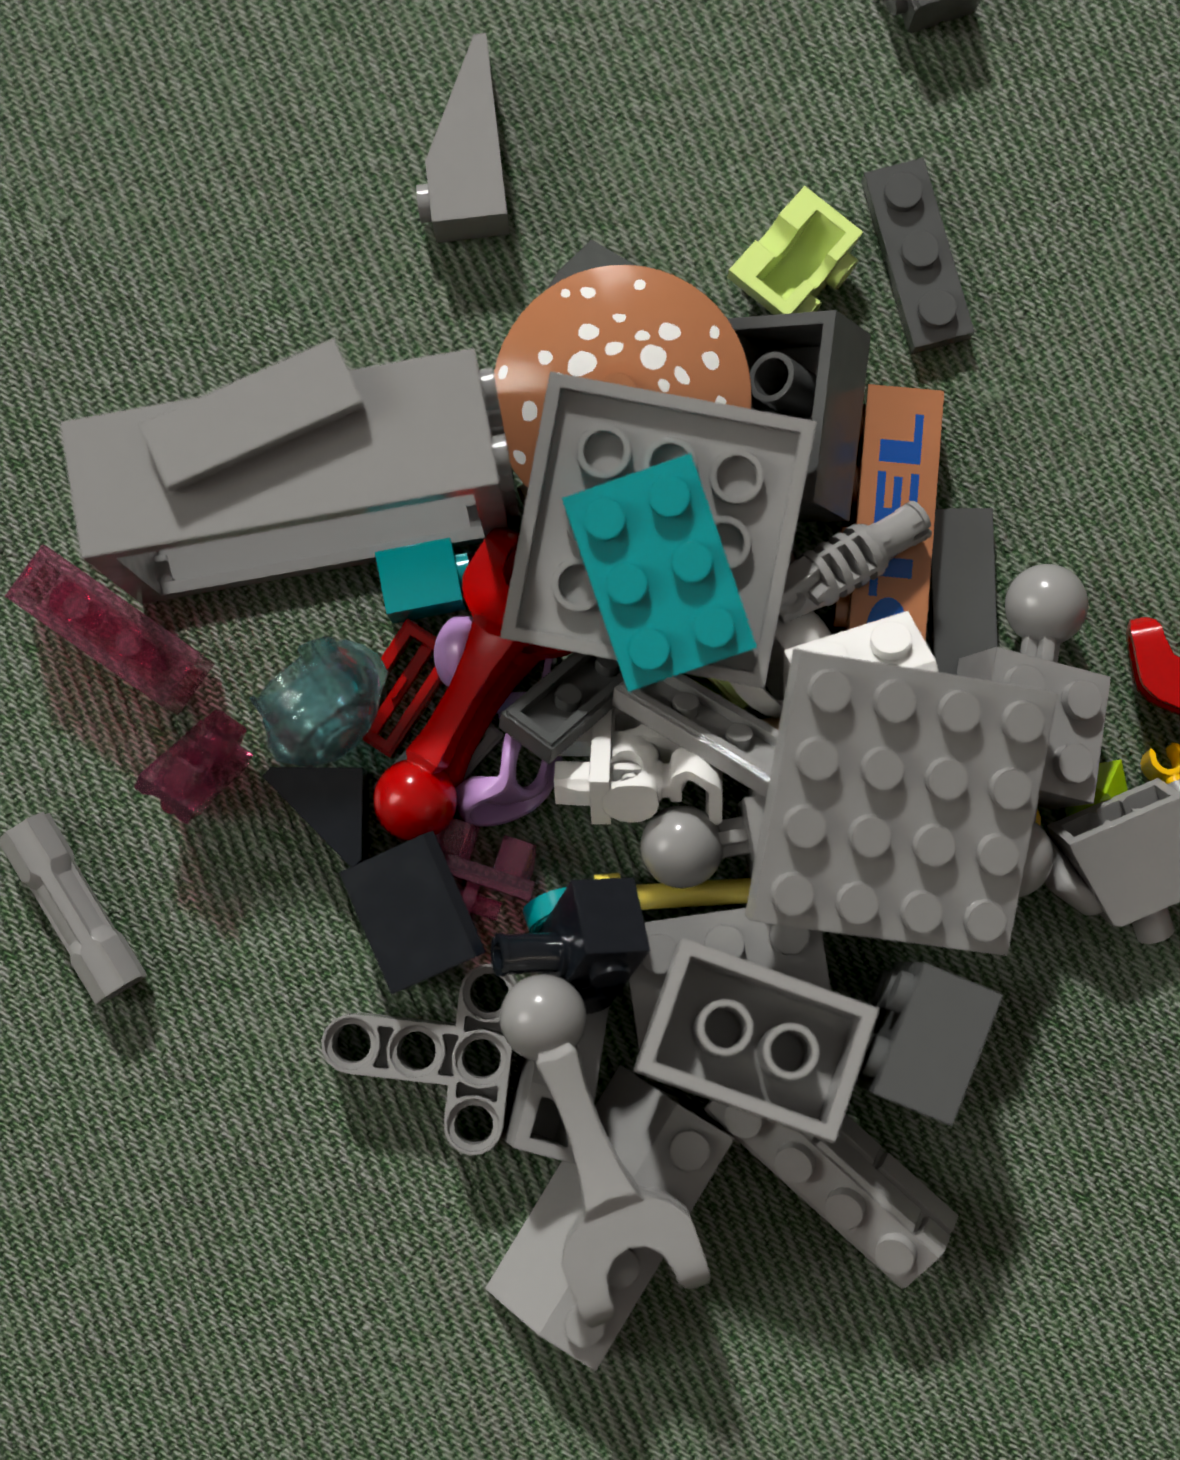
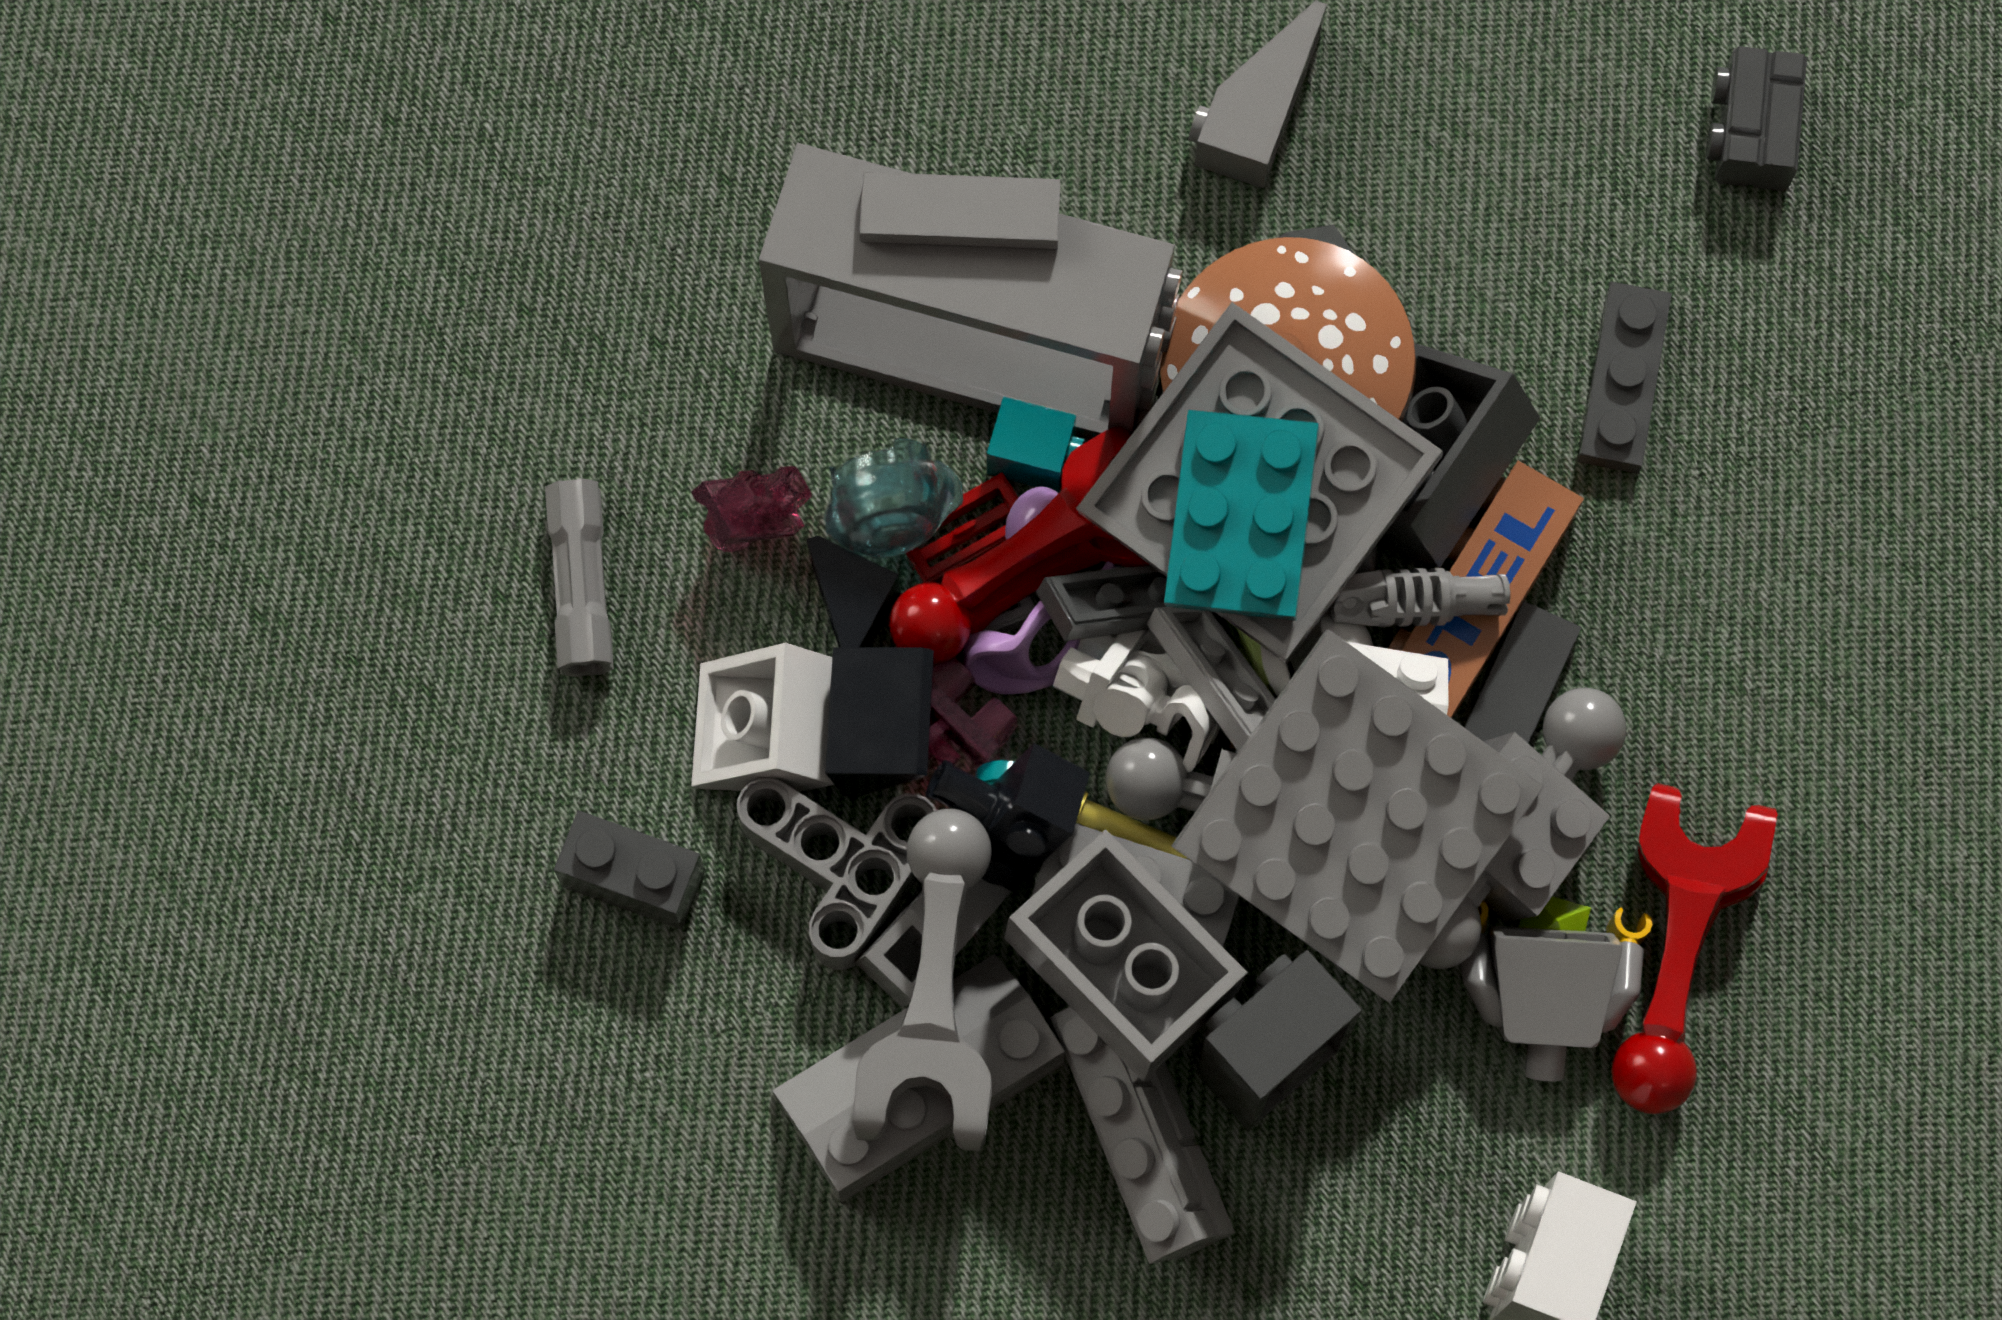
camera: 25 degrees right, 10 degrees down
(109, 630) = (738, 355): clear pink brick -> none
(255, 1160) = (629, 869): none -> dark grey brick
(306, 959) = (763, 719): none -> white slope
(798, 256) = (1513, 324): yellowish green cylinder -> none

